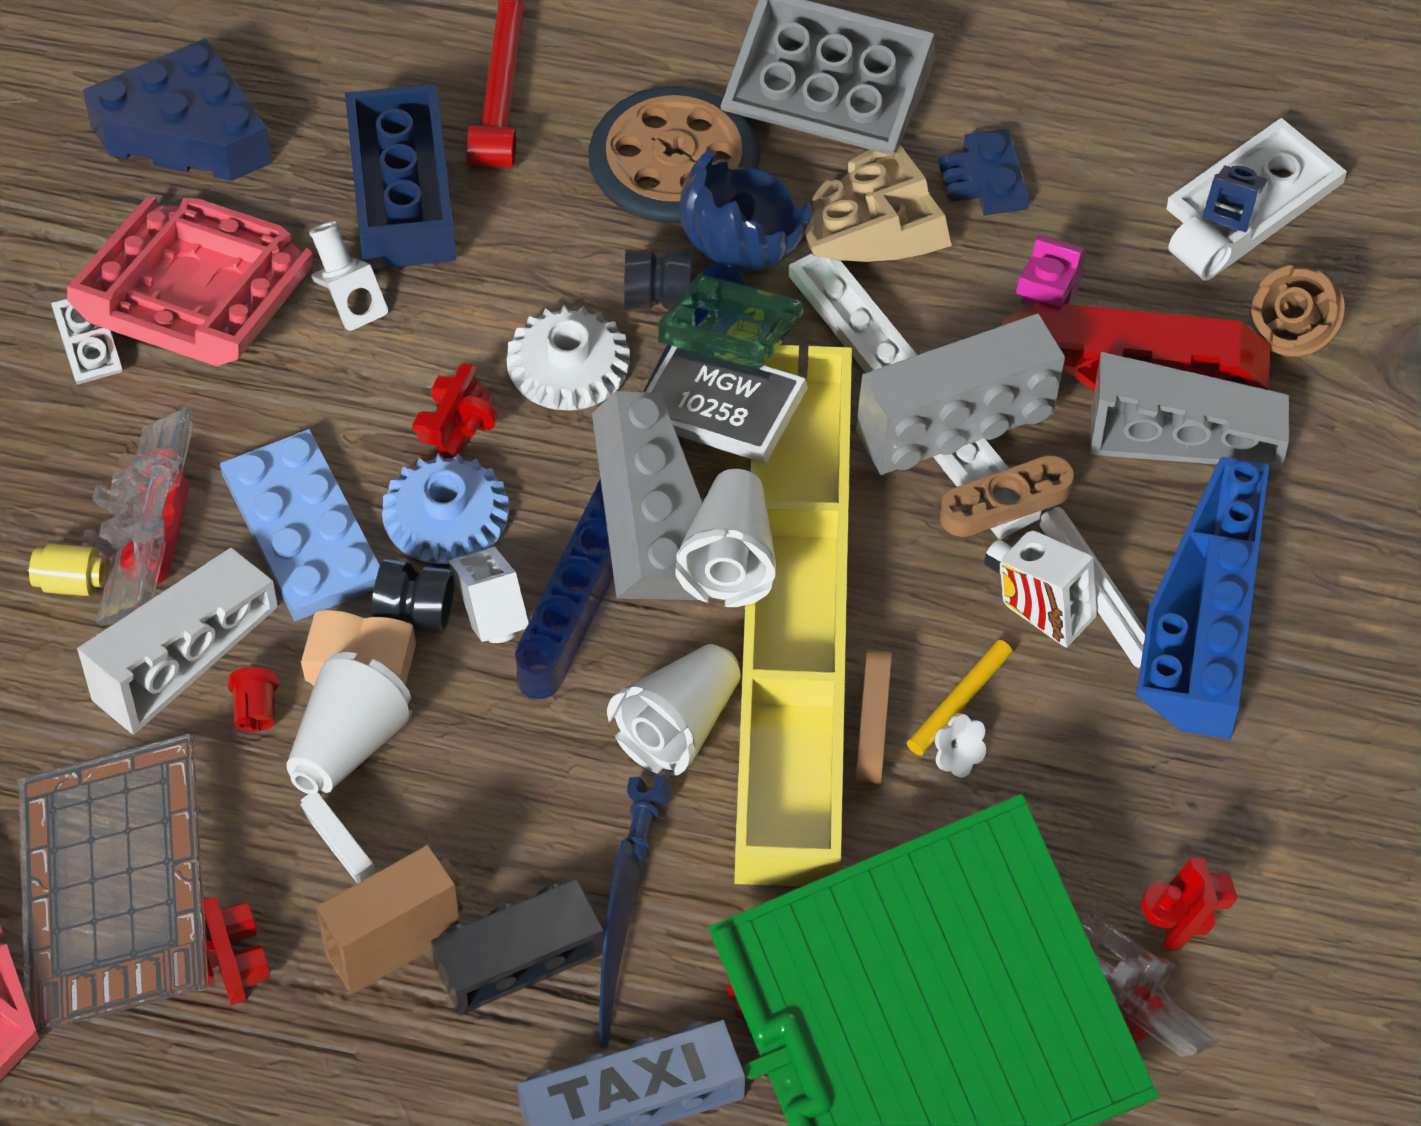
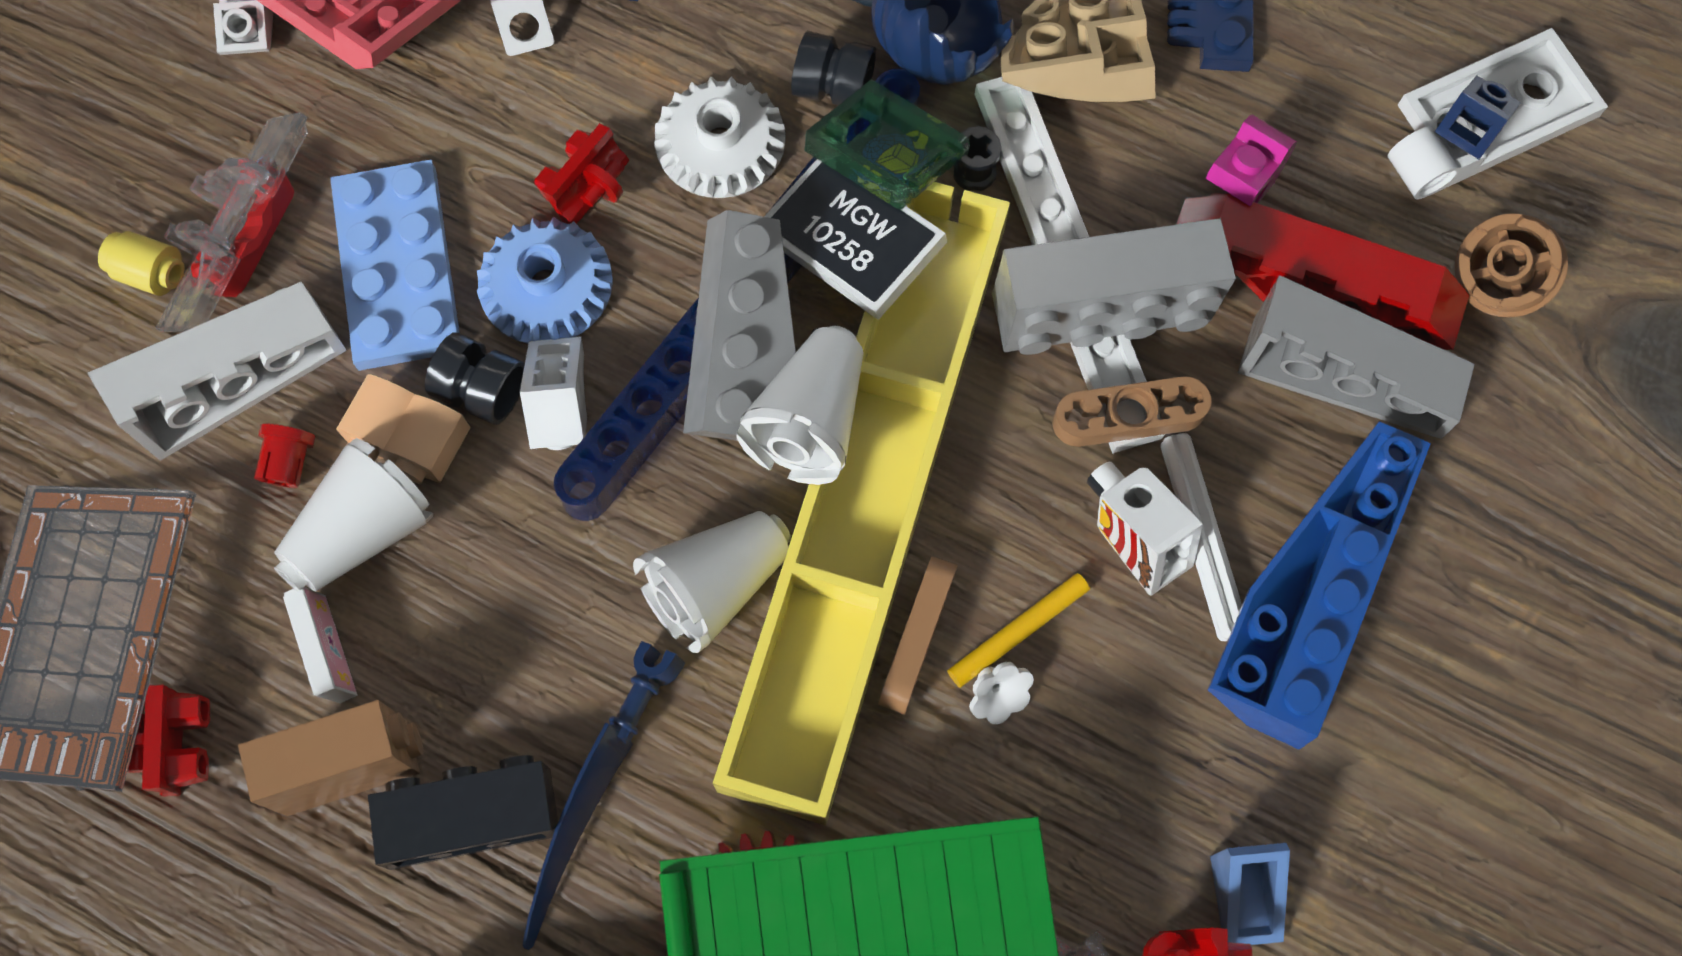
camera: 15 degrees right, 15 degrees up
(812, 330) = (979, 163): none -> black bush
(1219, 833) = (1252, 892): none -> medium blue slope

